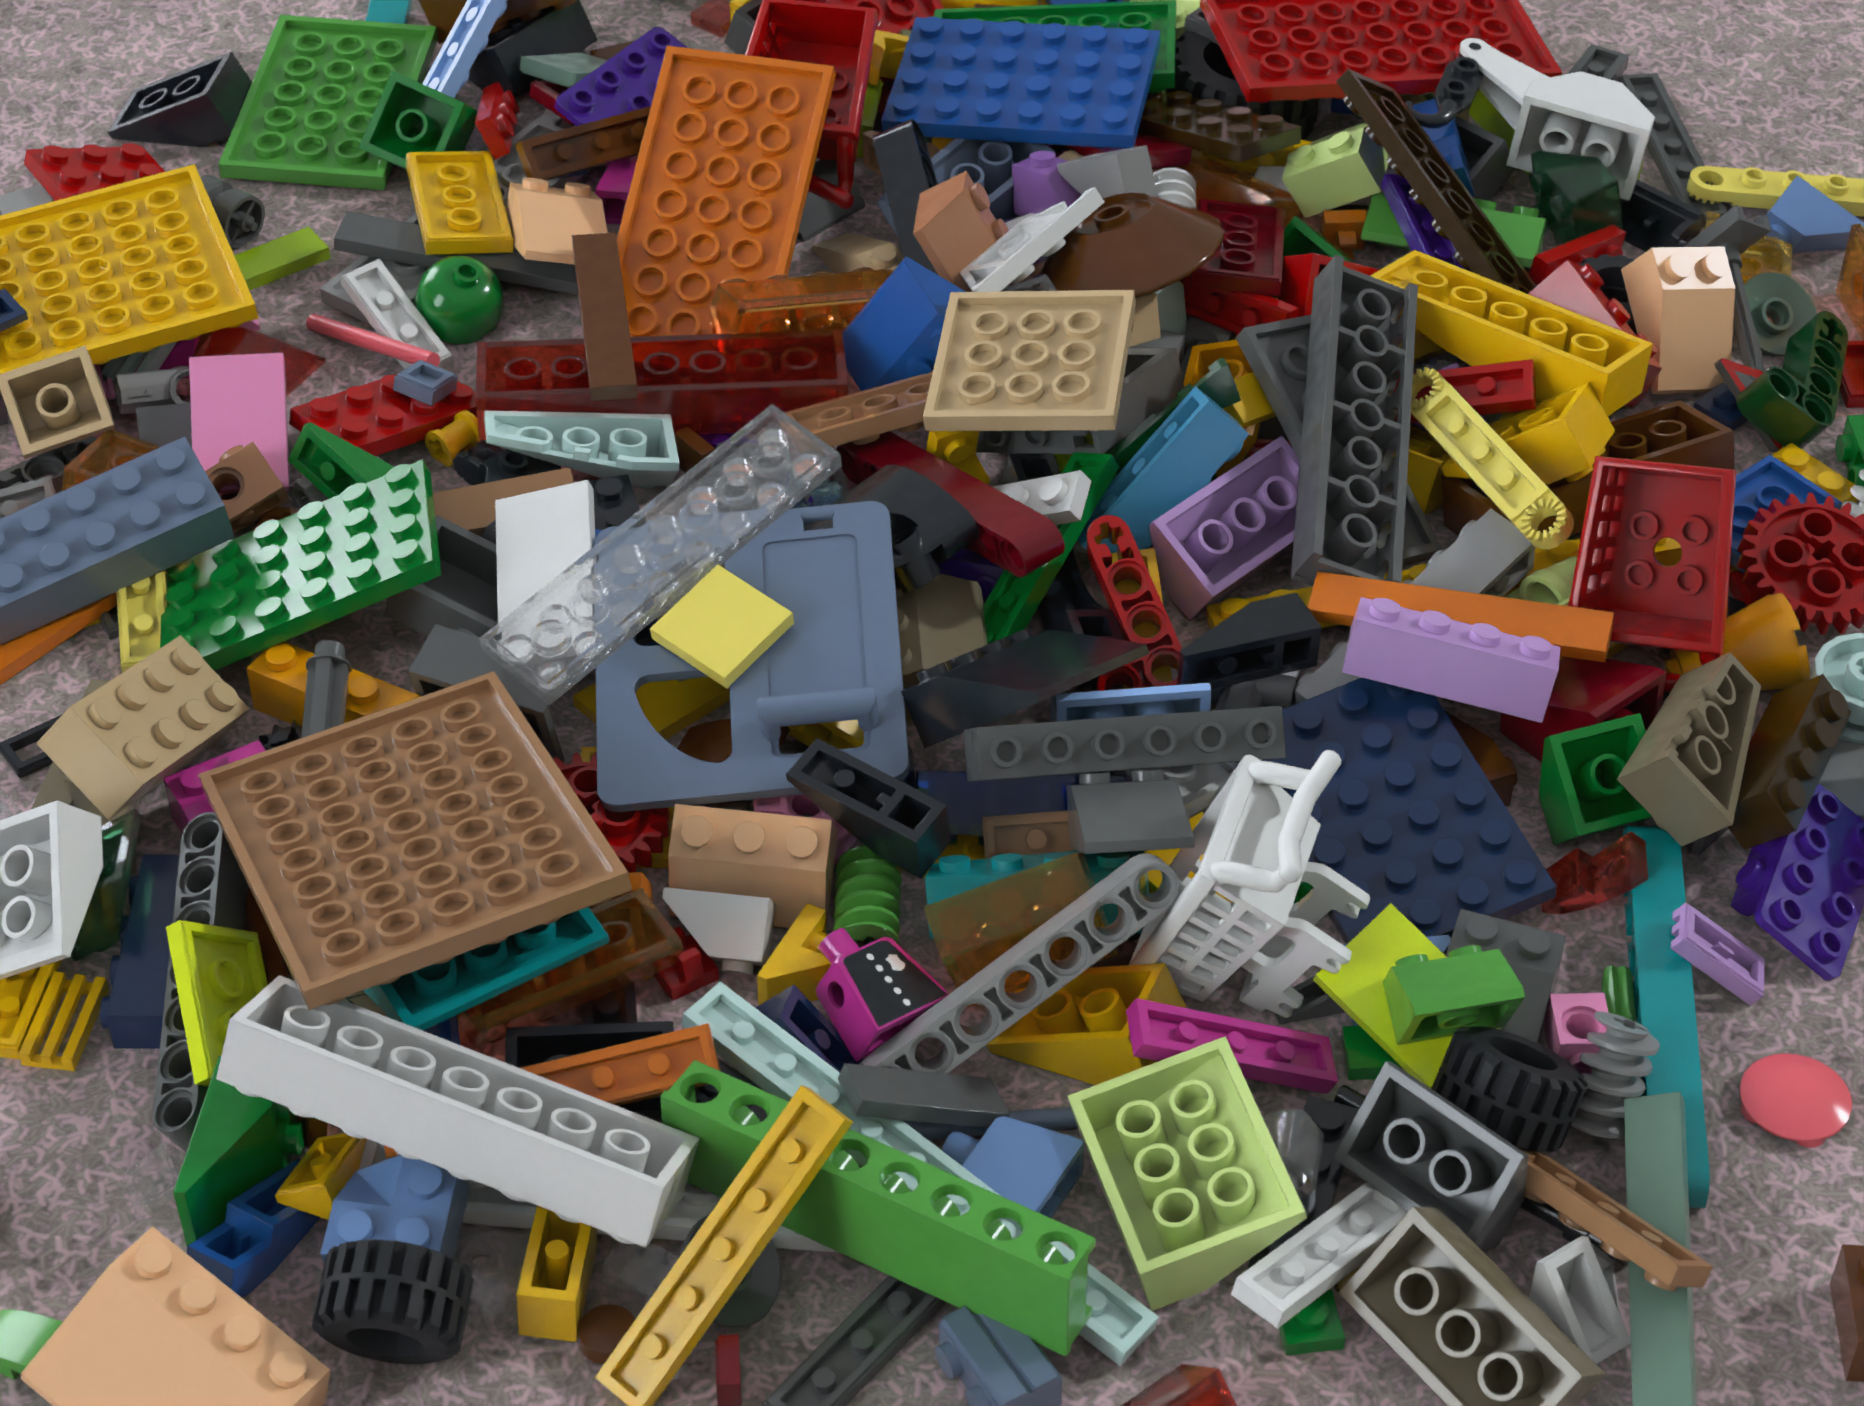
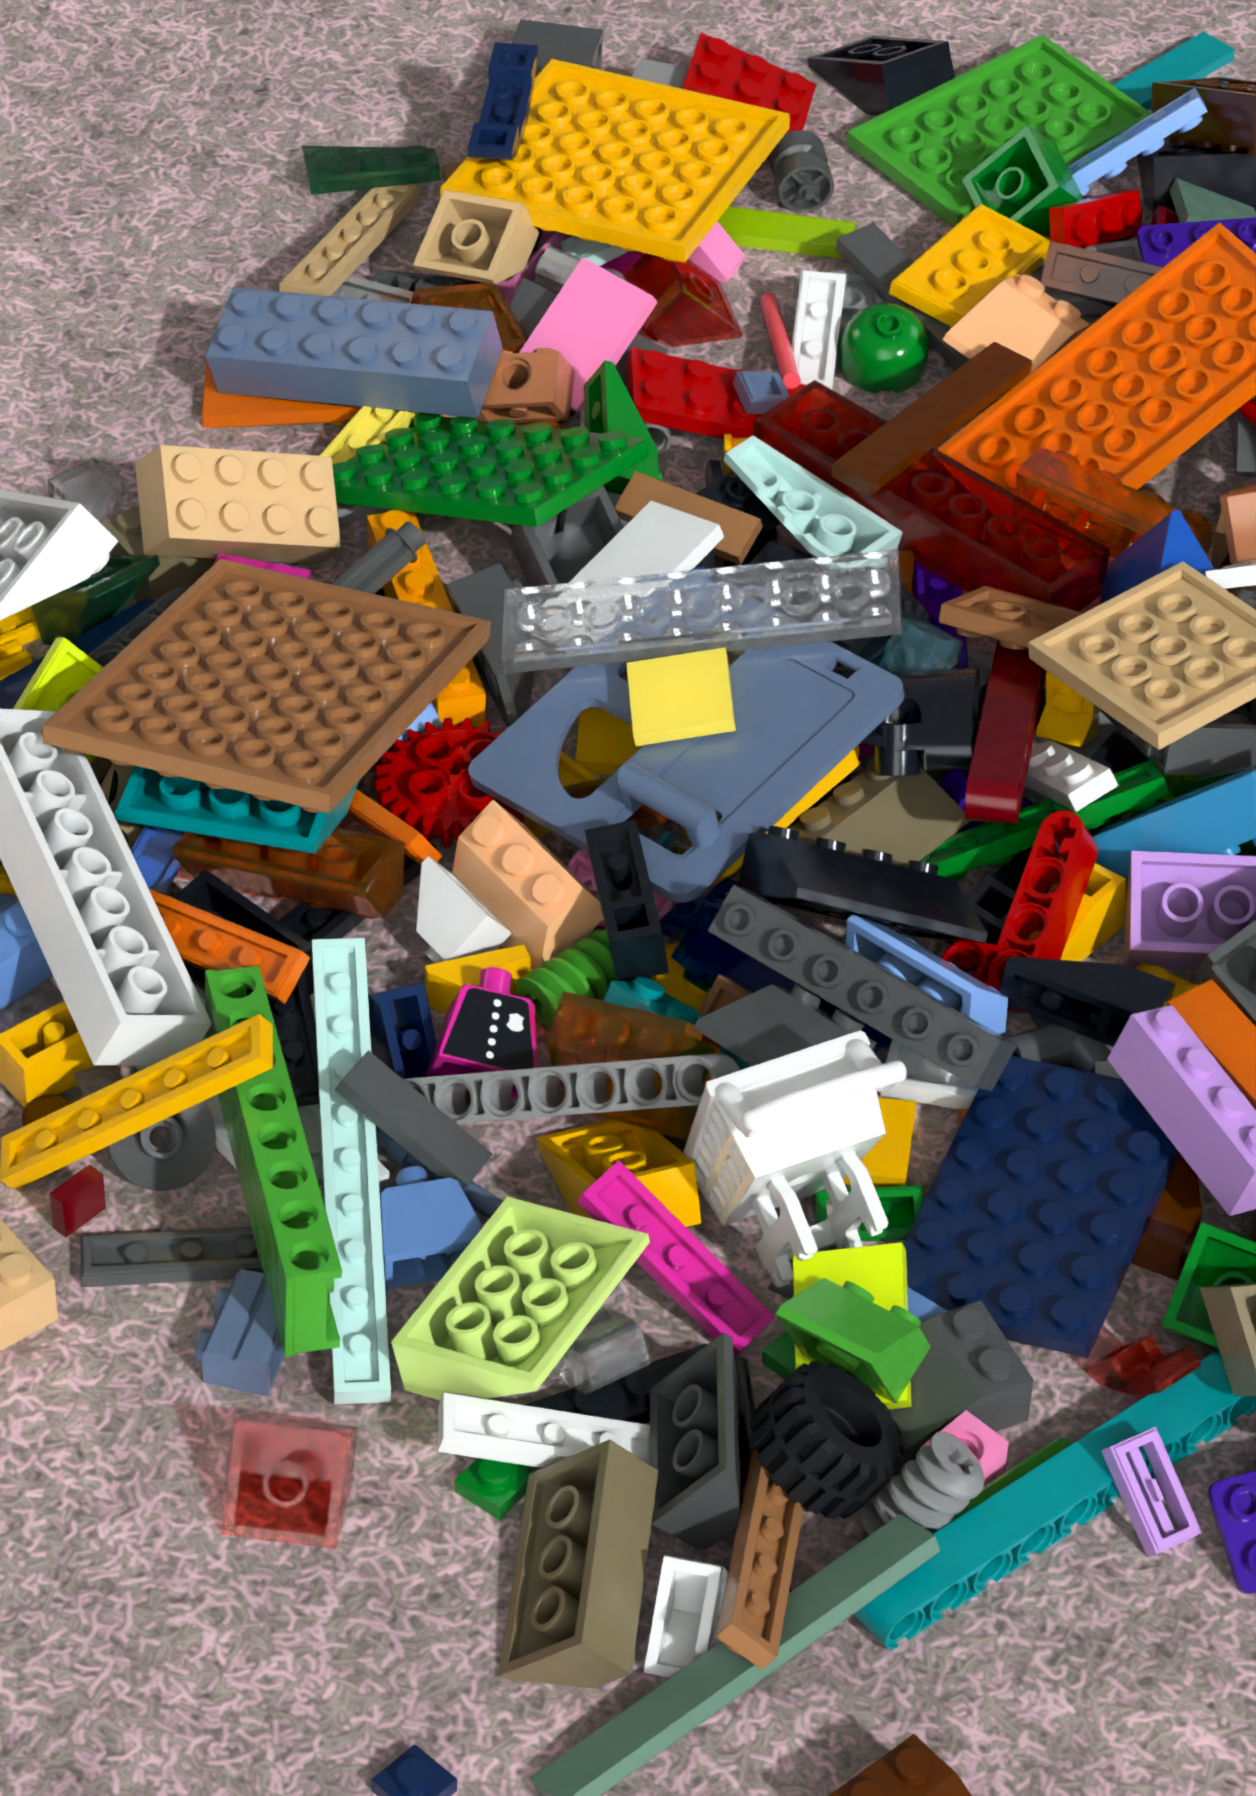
camera: 45 degrees right, 0 degrees up
(691, 972) = (399, 933): red tile -> none
(1795, 1098) = (1073, 1639): coral dish -> none

